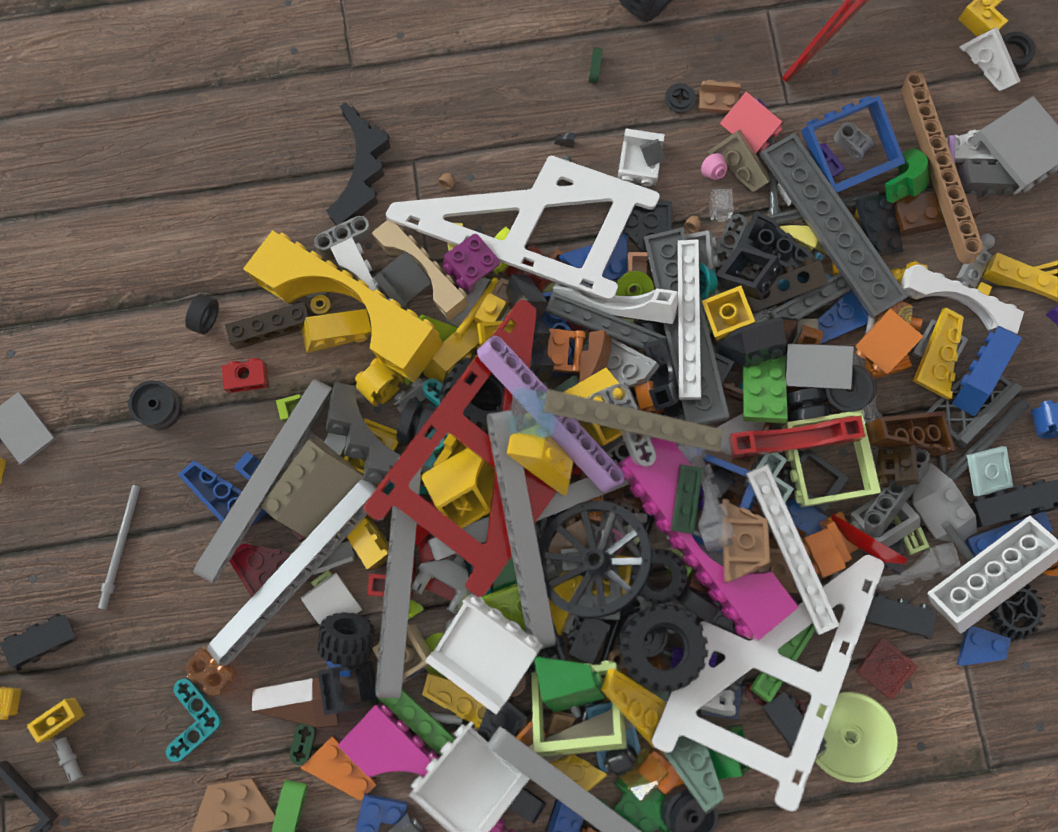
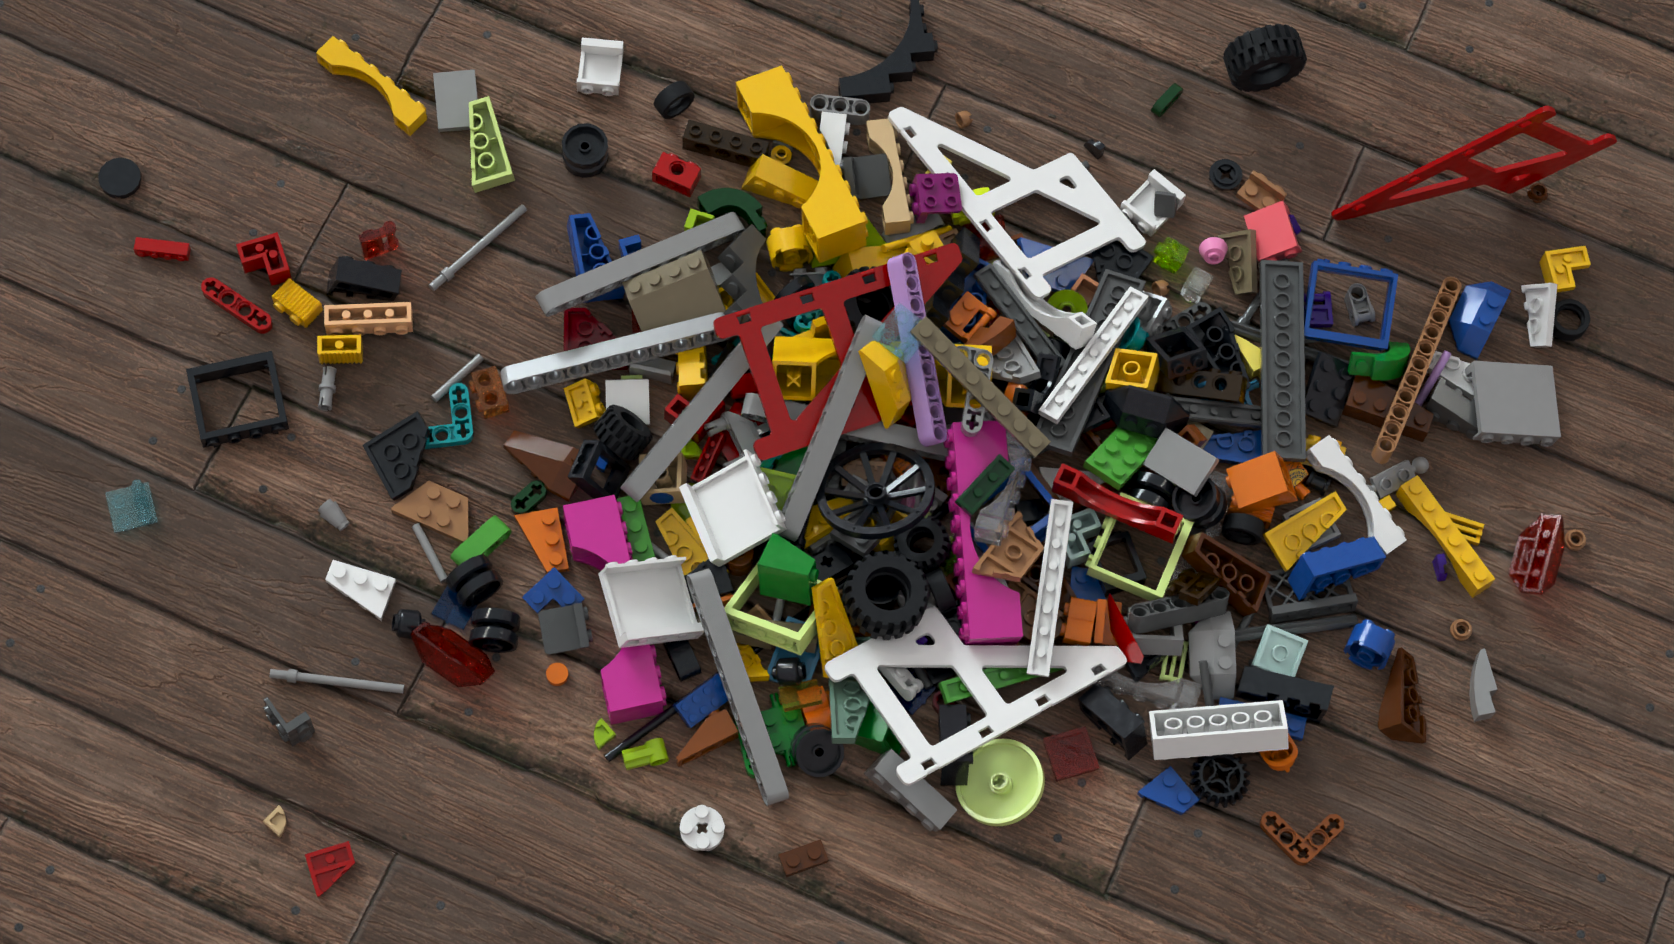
camera: 25 degrees right, 10 degrees down
(26, 606) = (372, 243): none -> clear red plate
(63, 676) = (368, 318): none -> light nougat brick
(74, 459) = (488, 153): none -> yellowish green wedge
(123, 323) = (600, 66): none -> white panel
(167, 781) = (398, 454): none -> black plate
(180, 652) = (444, 389): none -> light grey bar
(296, 627) = (584, 402): none -> yellow bracket
(308, 369) = (727, 200): none -> dark green arch
(430, 611) = (708, 457): none -> red piece
(684, 191) = (1170, 254): none -> clear neon green brick
(761, 791) = (918, 799): none -> light grey wedge
(895, 385) = (1243, 528): none -> black tyre
(922, 307) = (1318, 482): none -> black bush
(949, 91) = (1476, 316): none -> blue wedge

